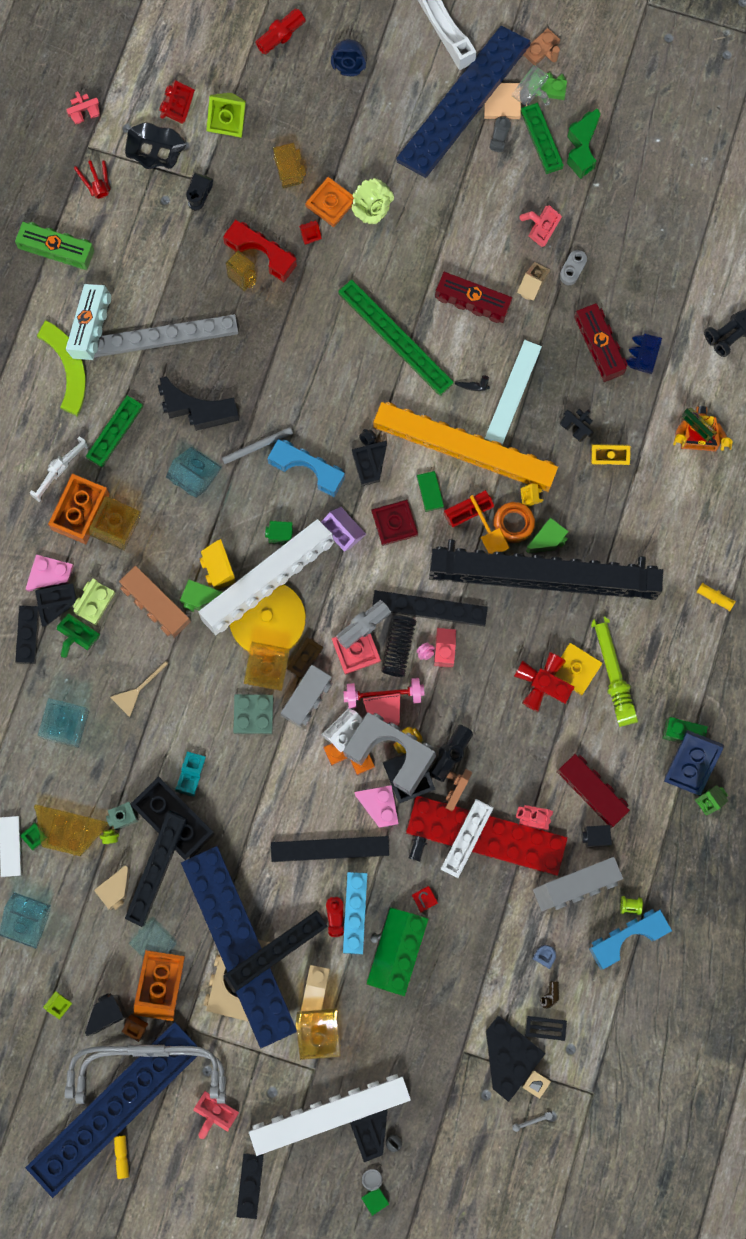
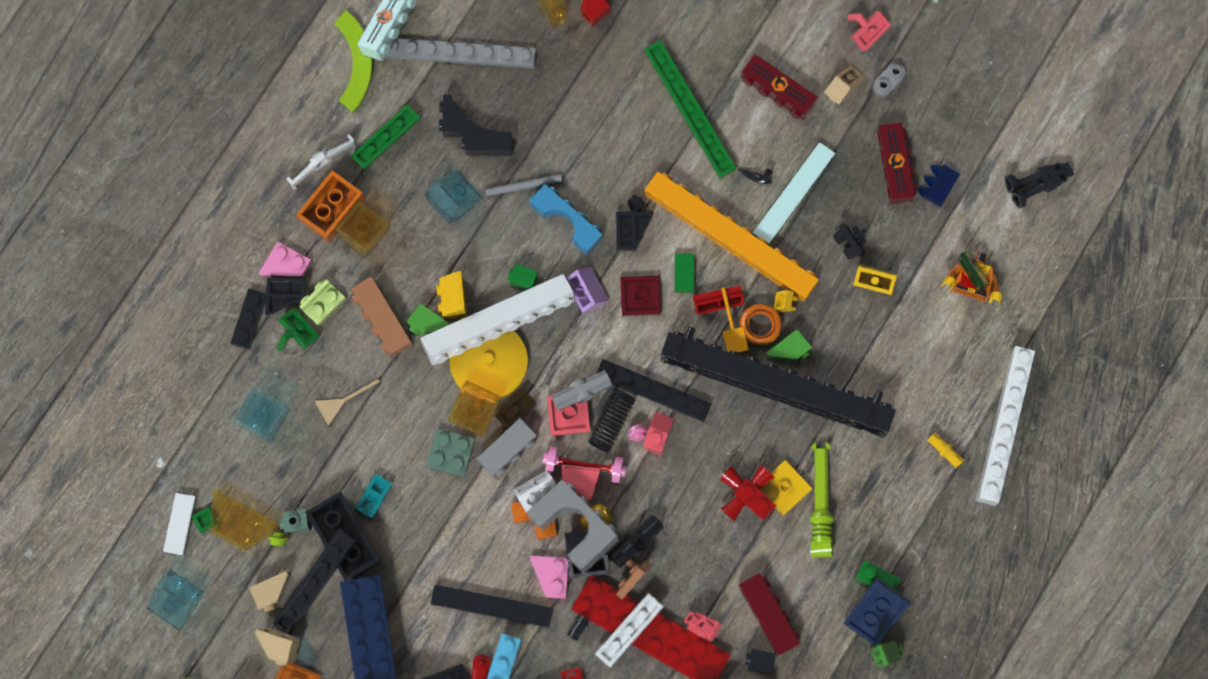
camera: 20 degrees right, 0 degrees up
(136, 938) = (278, 645): none -> tan slope

